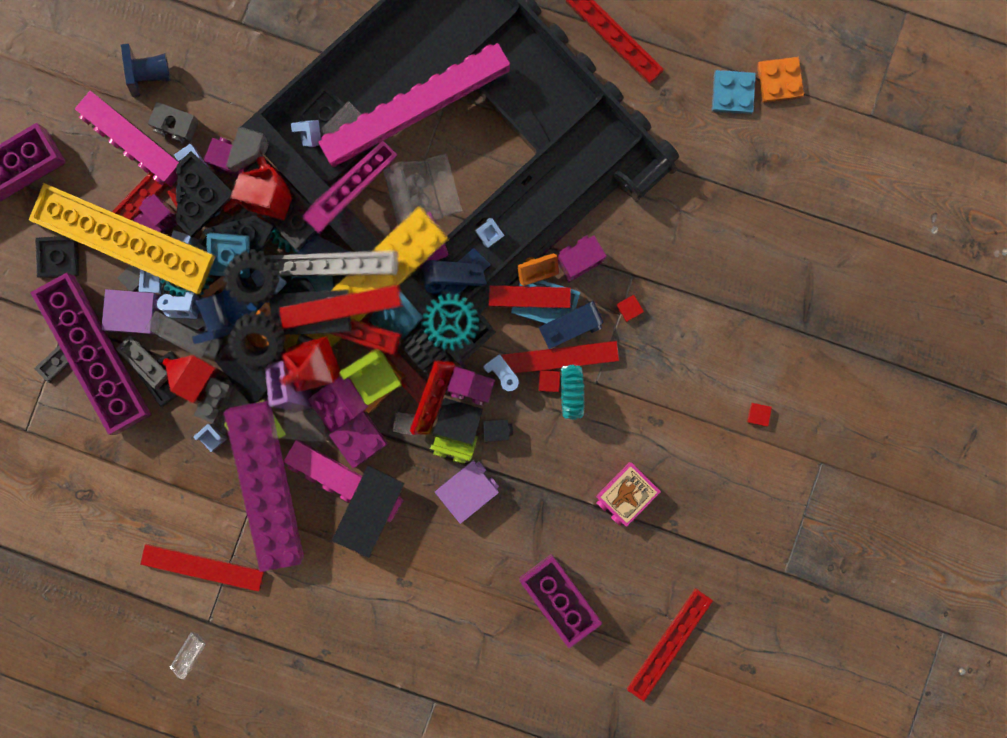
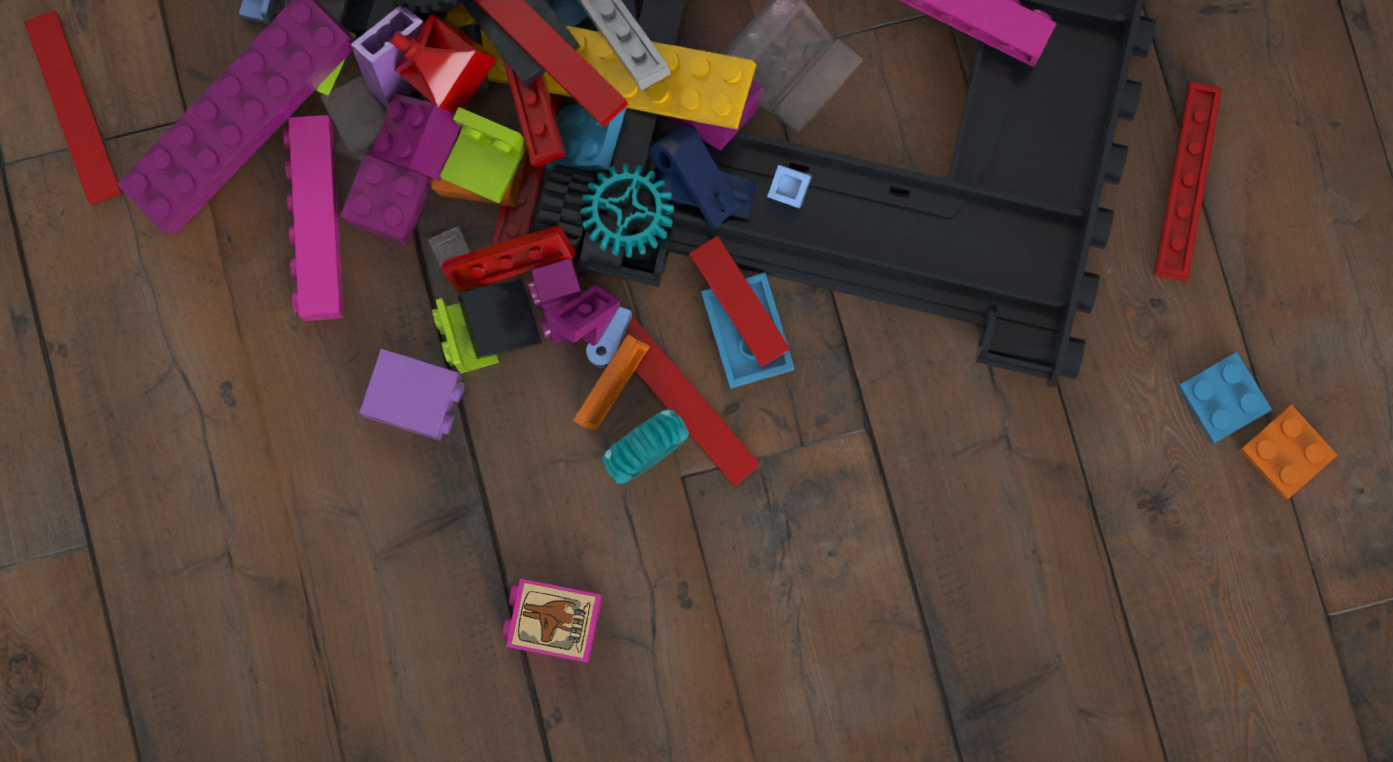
camera: 50 degrees right, 5 degrees down
(368, 511) = (294, 275): black tile -> none
(488, 378) = (585, 316): none -> magenta slope
(497, 430) = (524, 380): black brick -> none
(528, 387) = (611, 383): none -> orange tile
(538, 269) = (785, 287): orange tile -> none
(549, 381) = (640, 406): red tile -> none
(560, 600) = (342, 623): magenta brick -> none
(572, 324) = (740, 386): dark blue door -> none
(581, 258) = (840, 335): magenta brick -> none
(629, 308) = (819, 453): red tile -> none
(759, 414) = (791, 735): red tile -> none

